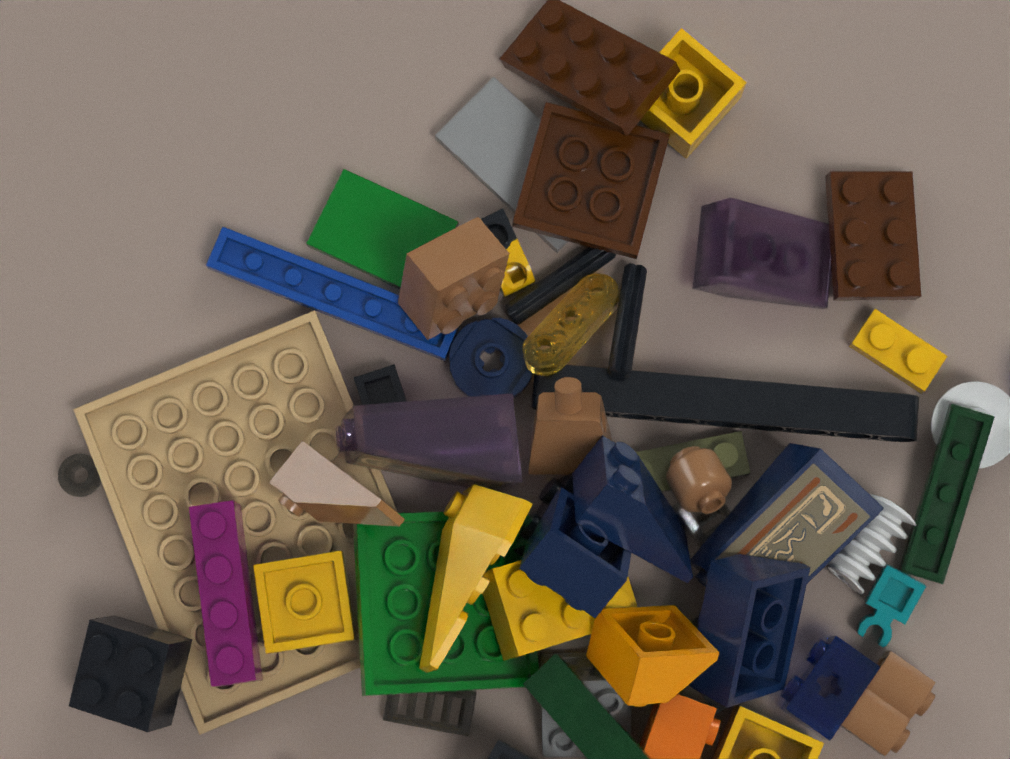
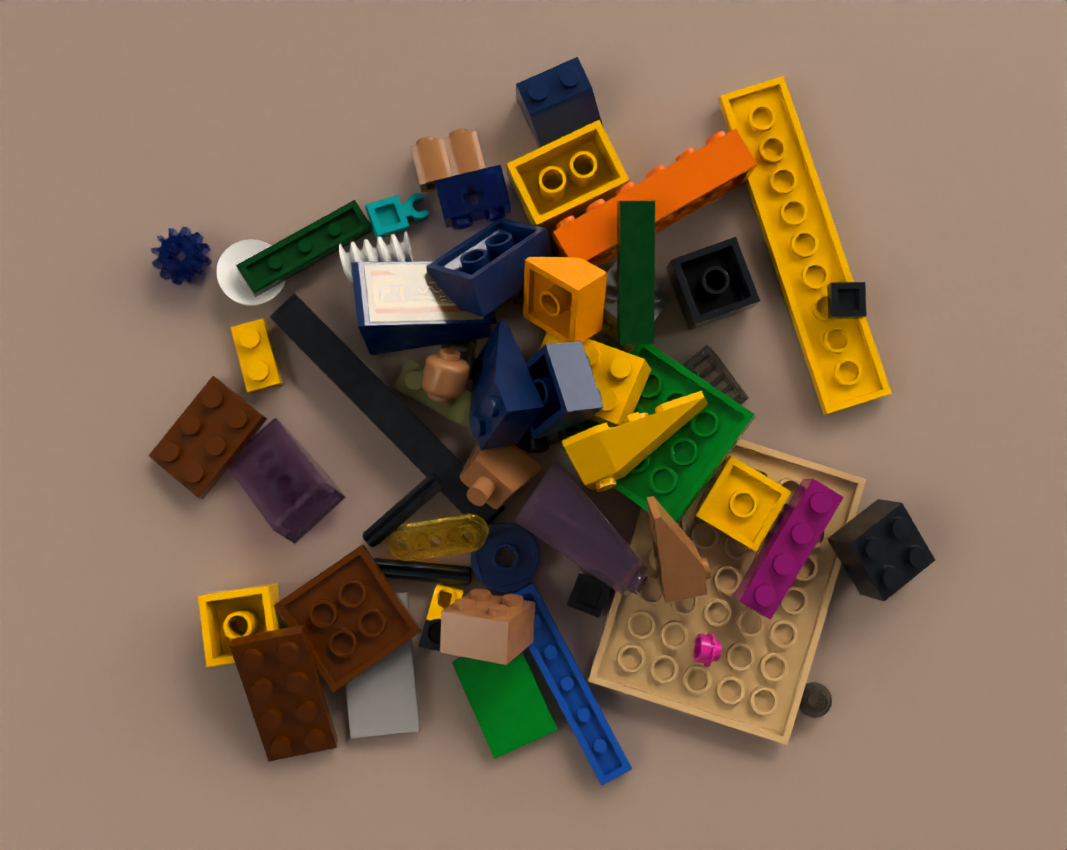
camera: 145 degrees left, 5 degrees up
(225, 432) = (706, 649): none -> dark pink plate

